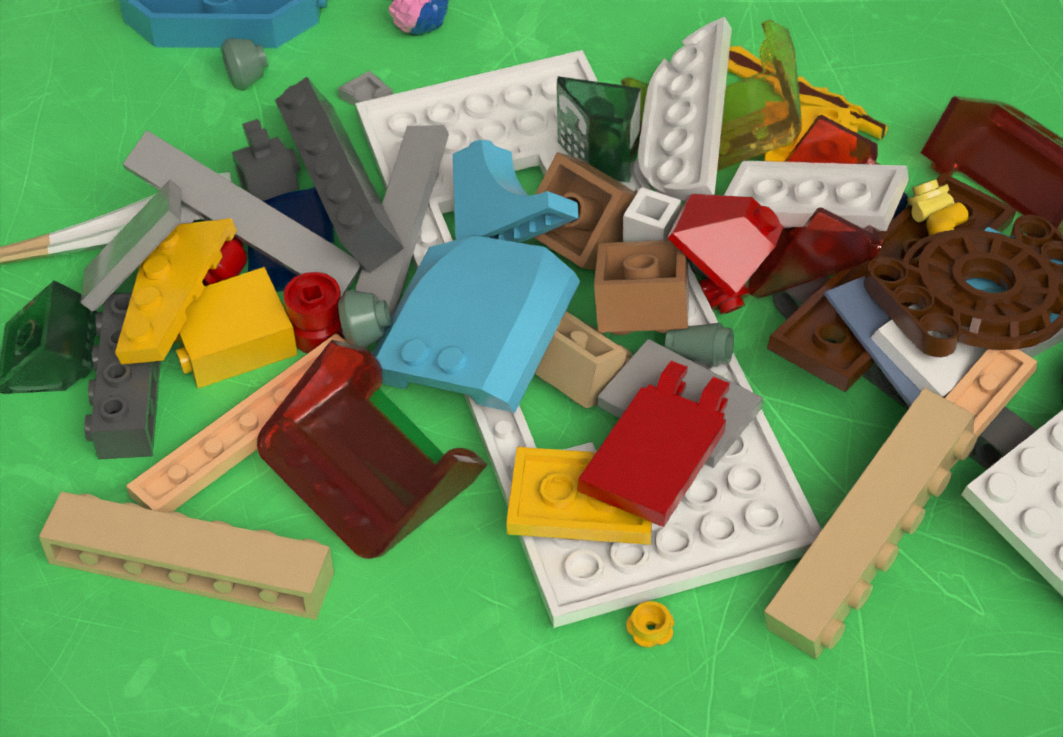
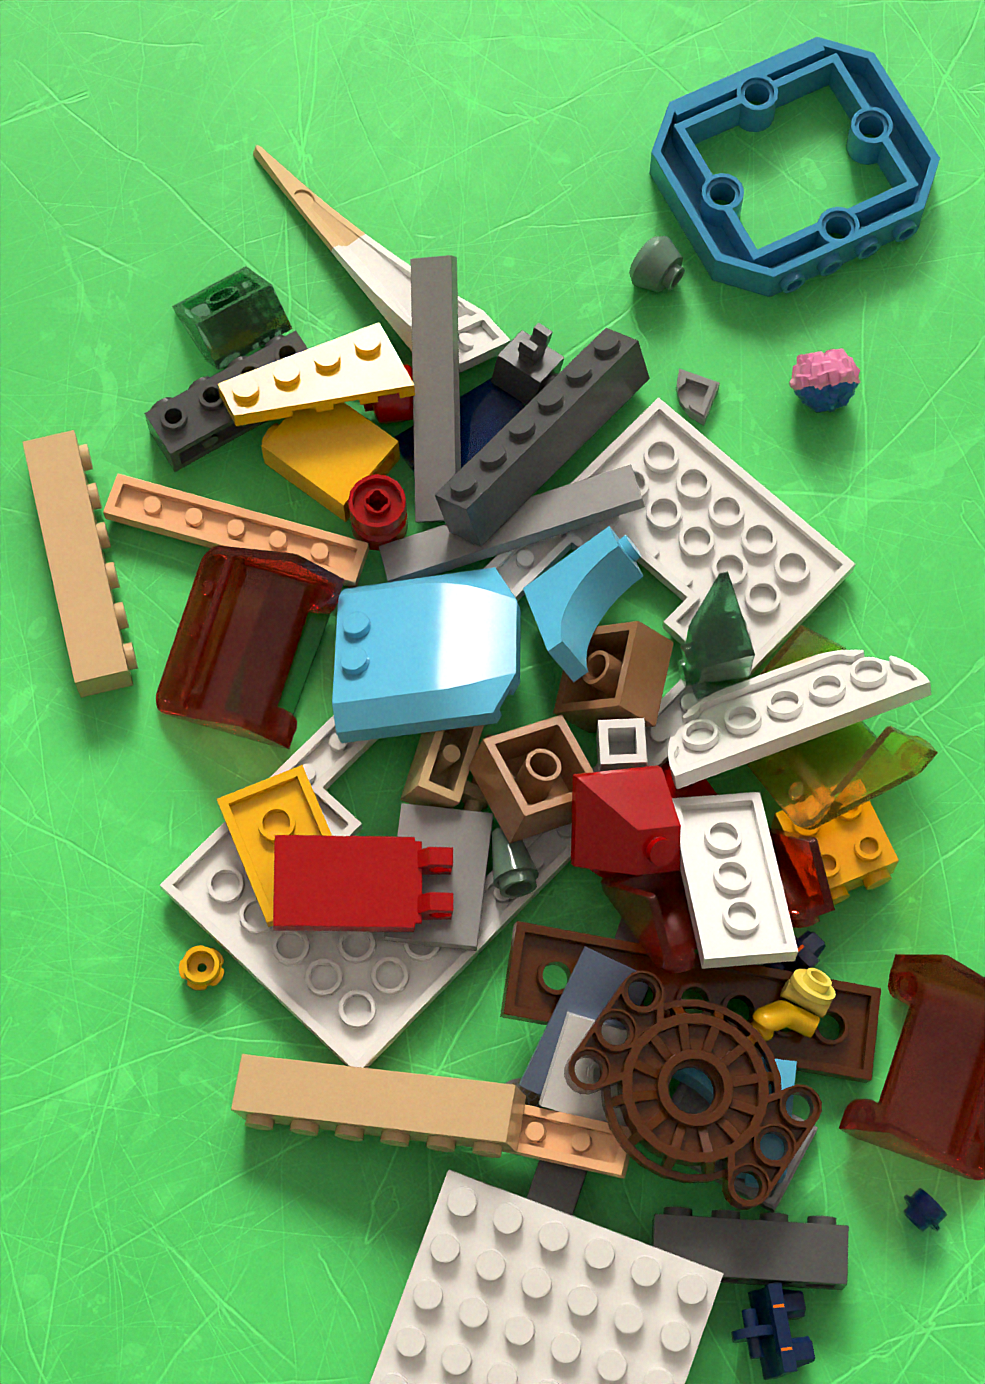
camera: 60 degrees right, 20 degrees up
(131, 246) = (342, 322): light grey tile -> none
(363, 317) = (380, 557): sand green cone -> none
(746, 64) = (937, 792): yellow sword -> none

